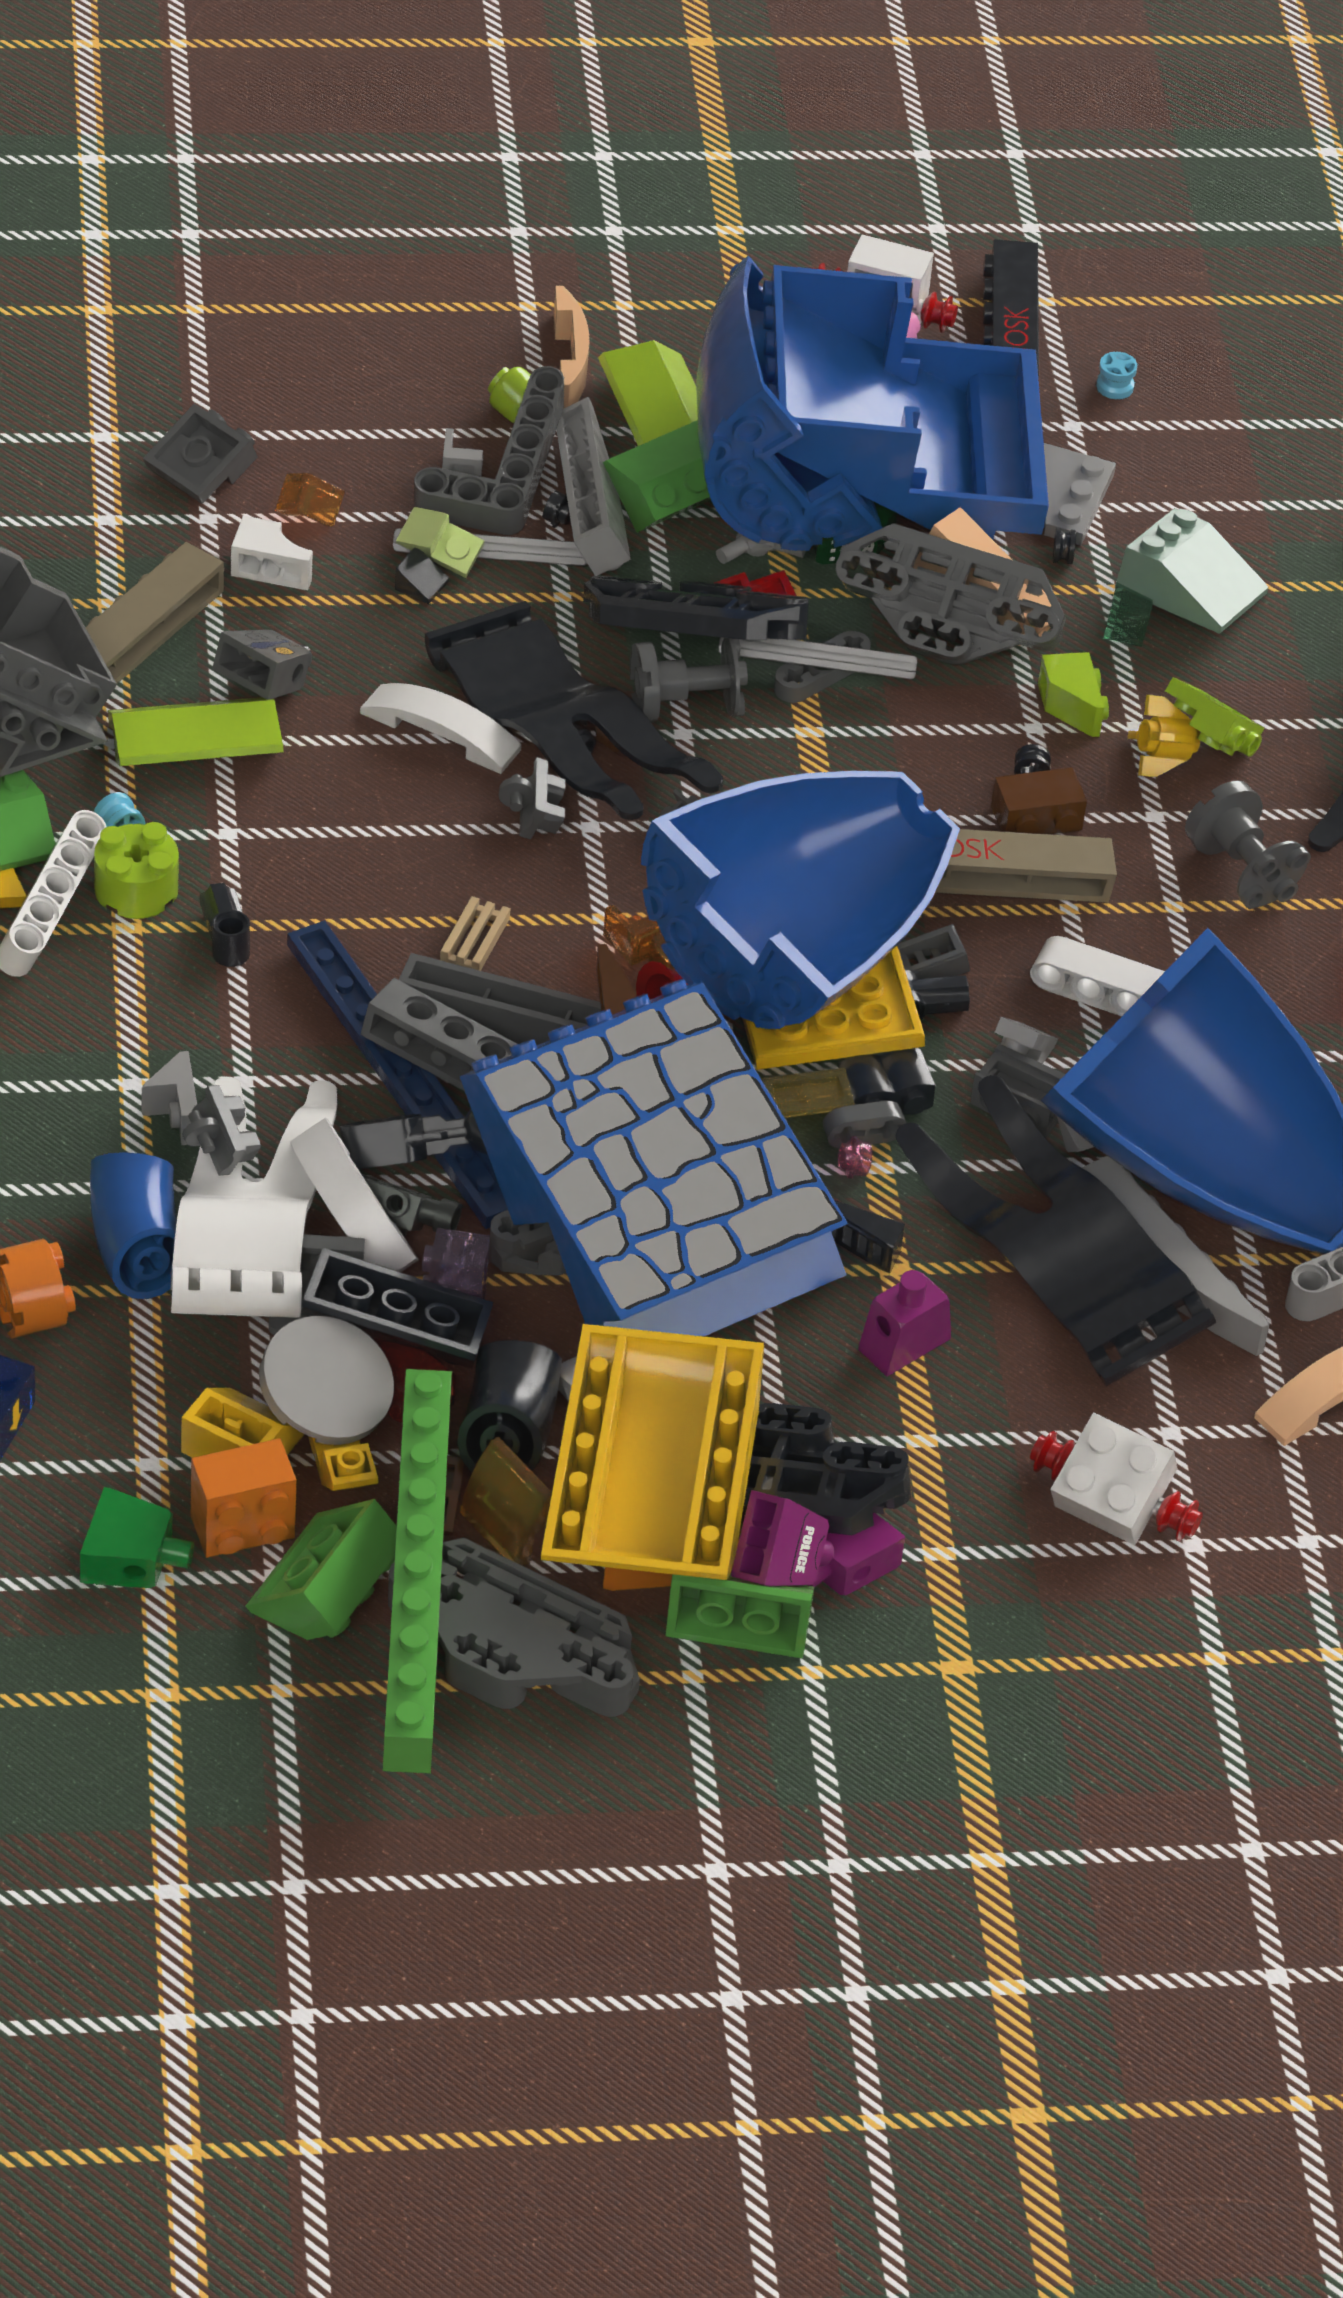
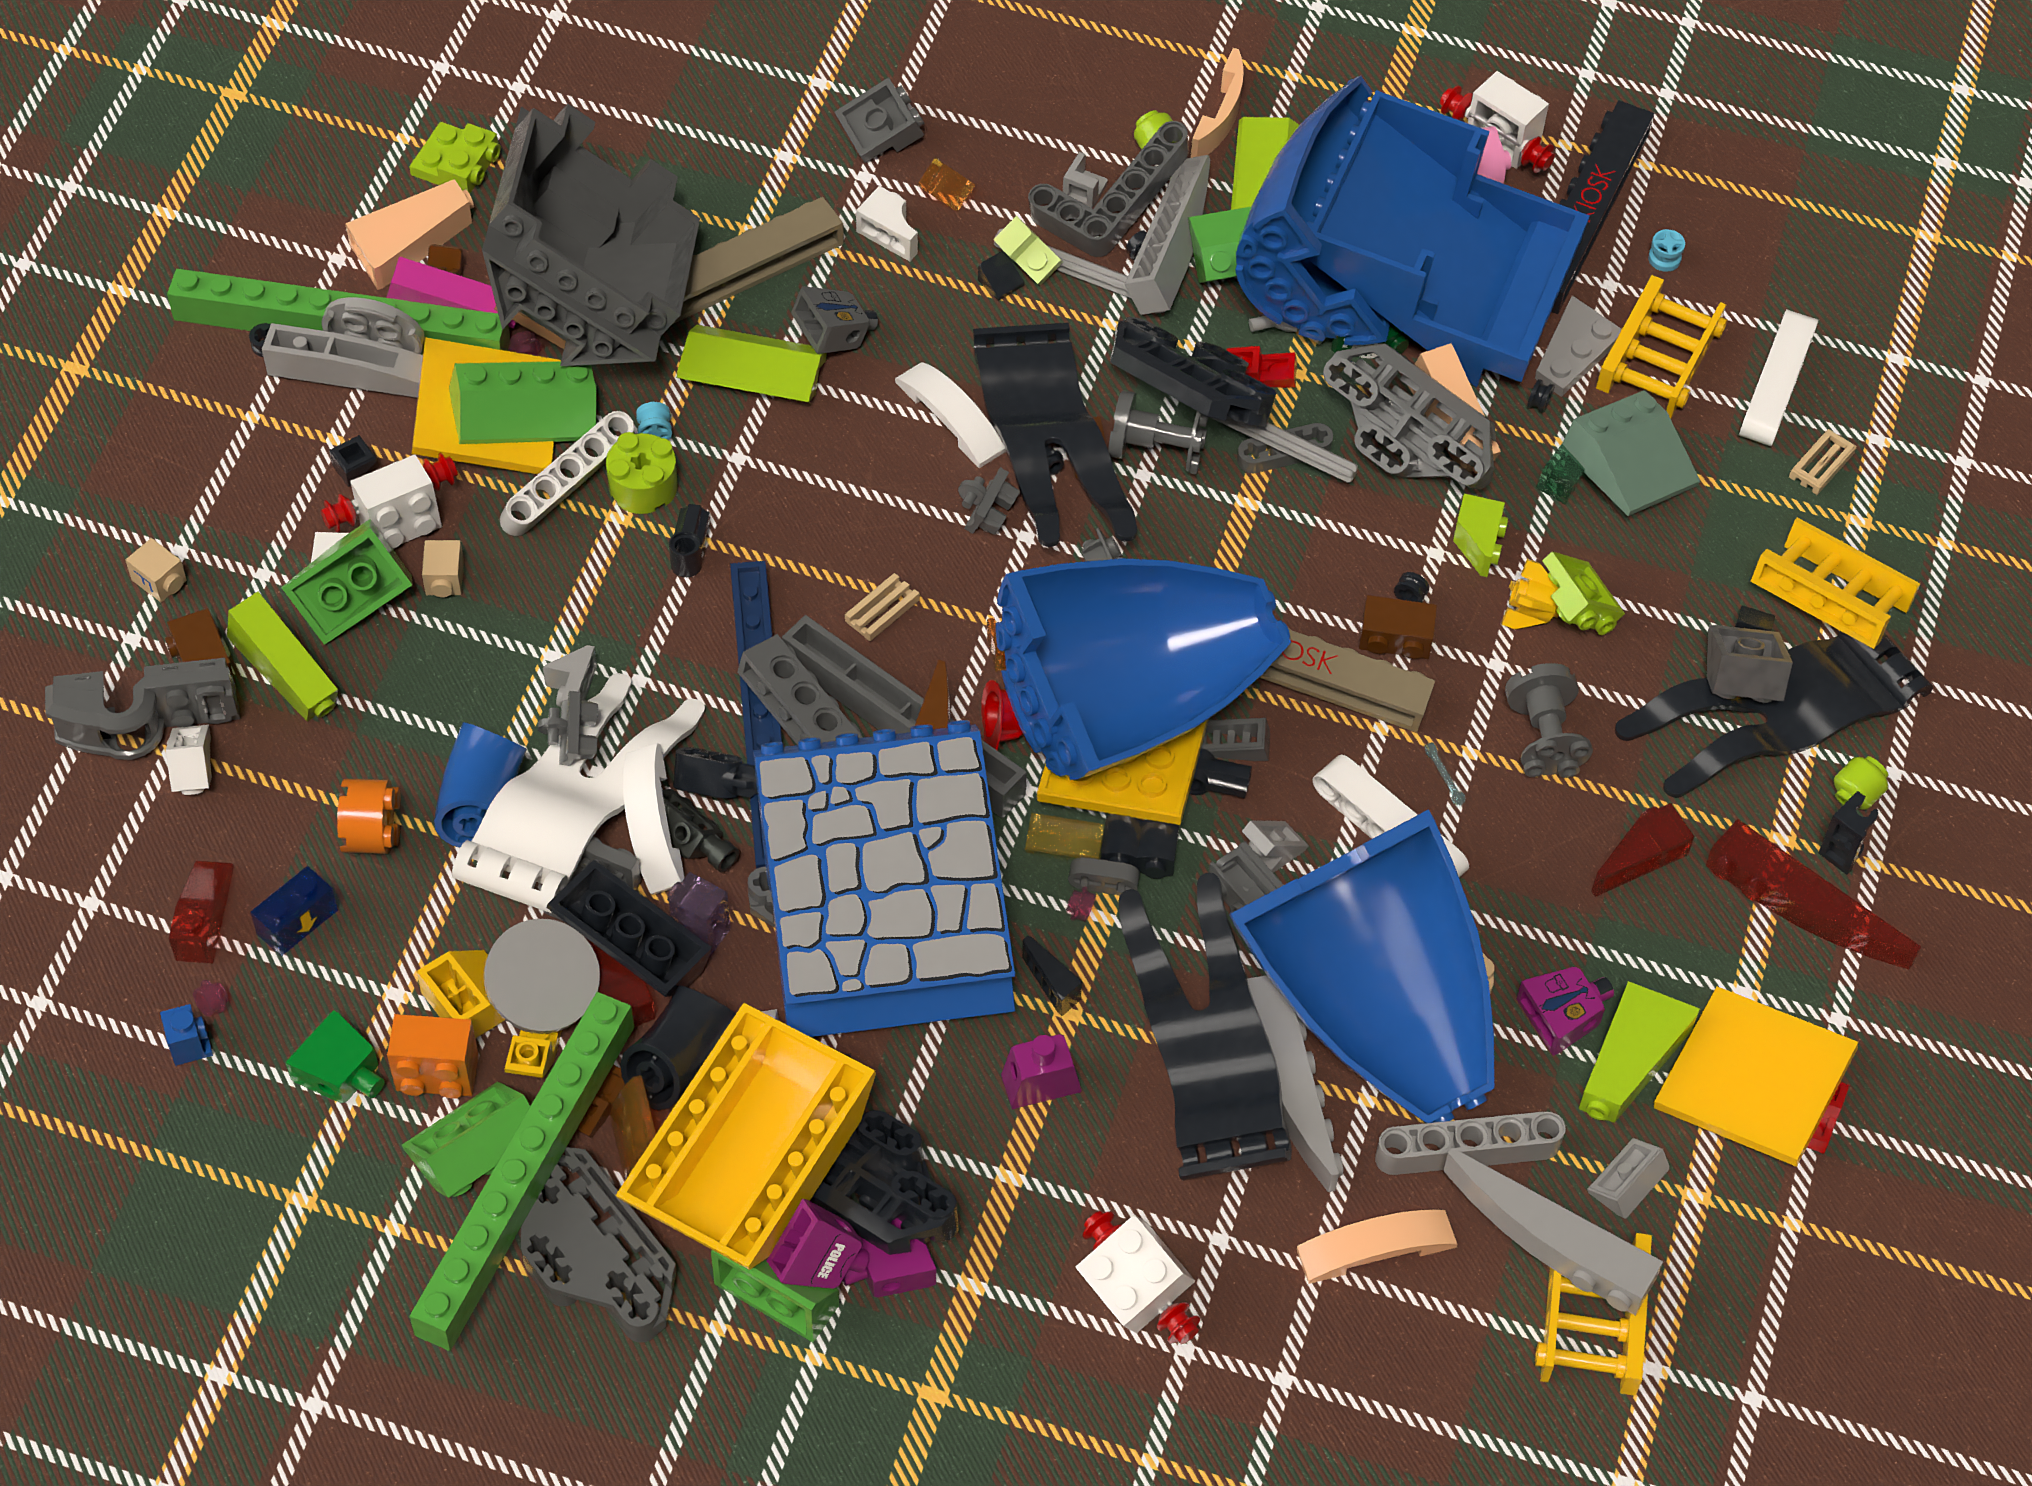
camera: 25 degrees right, 10 degrees up
(1131, 477) = (1641, 323): none -> yellow fence
(1135, 913) = (1458, 797): none -> clear light blue hinge
(1297, 467) = (1778, 378): none -> white beam

